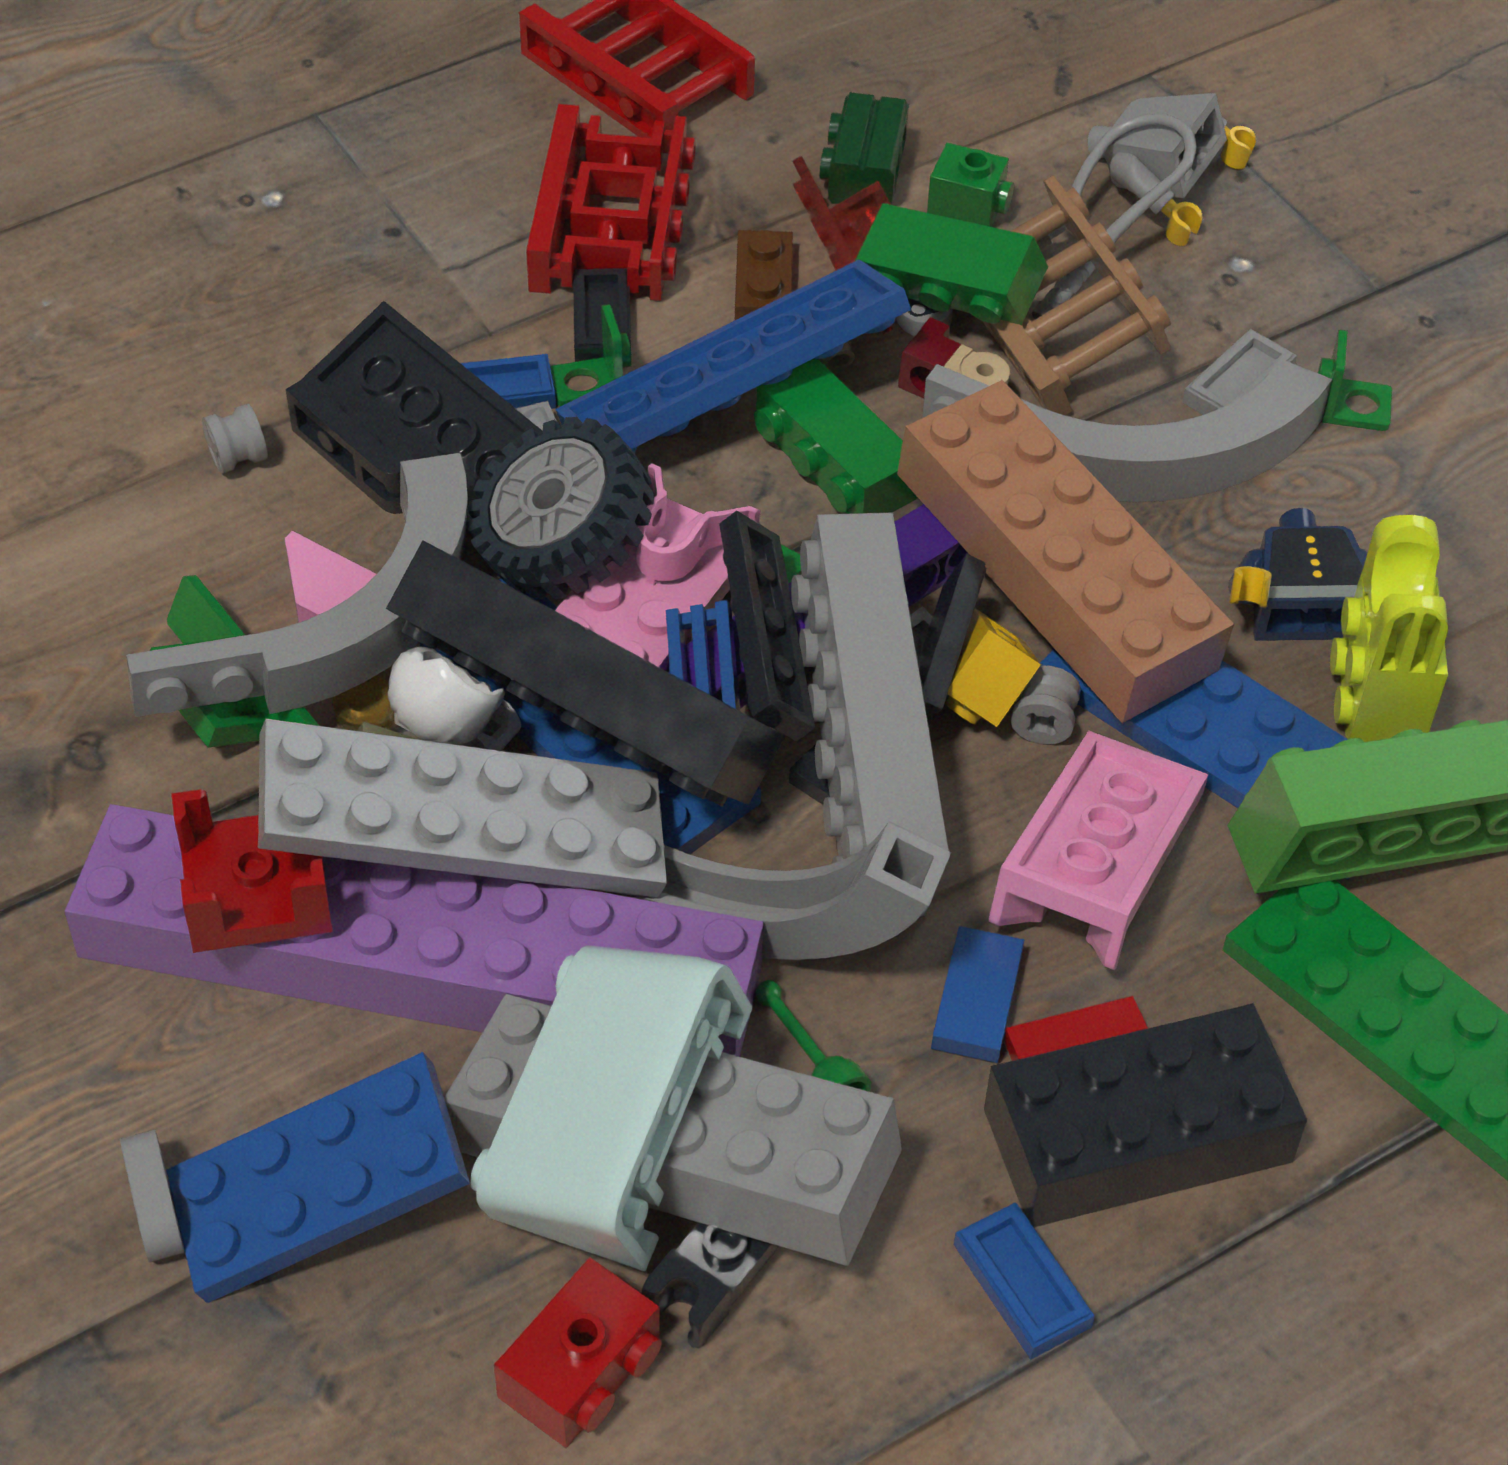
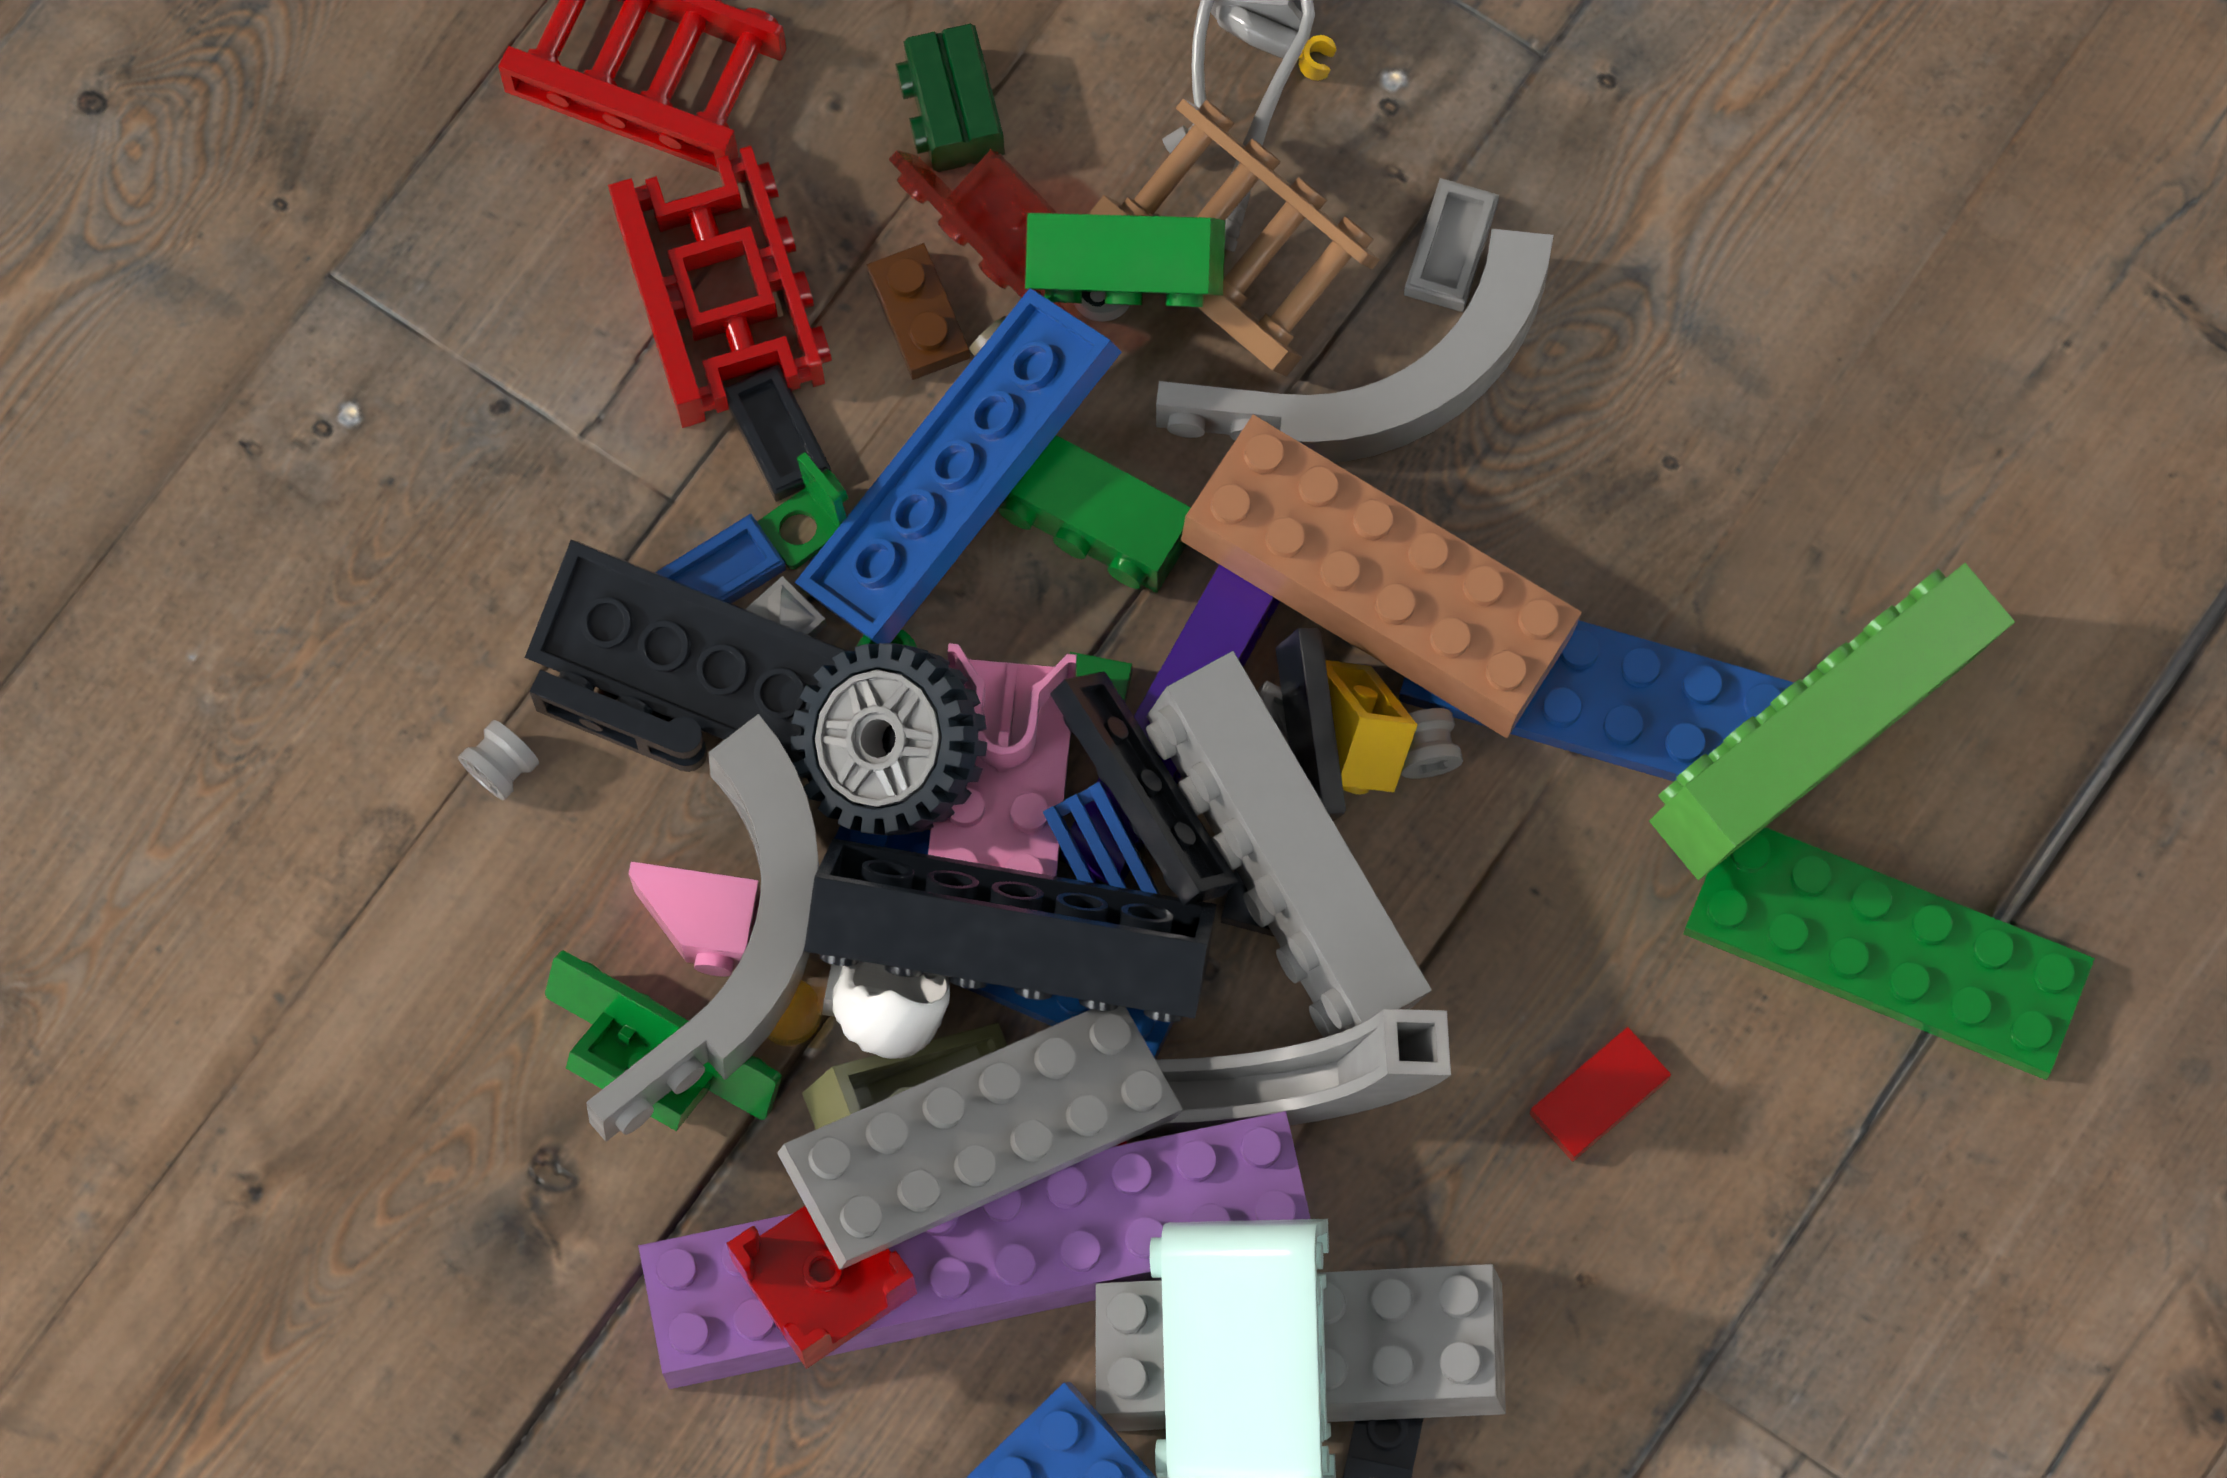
camera: 20 degrees left, 20 degrees up
(829, 1068) = (1405, 1226): green hinge -> none
(934, 347) = (1152, 360): dark red leg -> none
(969, 185) = (1082, 107): green brick -> none
(977, 994) = (1490, 1079): blue tile -> none
(1023, 1280) = (1642, 1343): blue tile -> none
(1098, 841) = (1541, 877): bright pink plate -> none
(1143, 1114) = (1684, 1148): black brick -> none
(1299, 578) = (1621, 488): torso -> none
(1341, 389) = (1548, 217): green bracket -> none
(1393, 635) = (1729, 562): neon yellow brick -> none

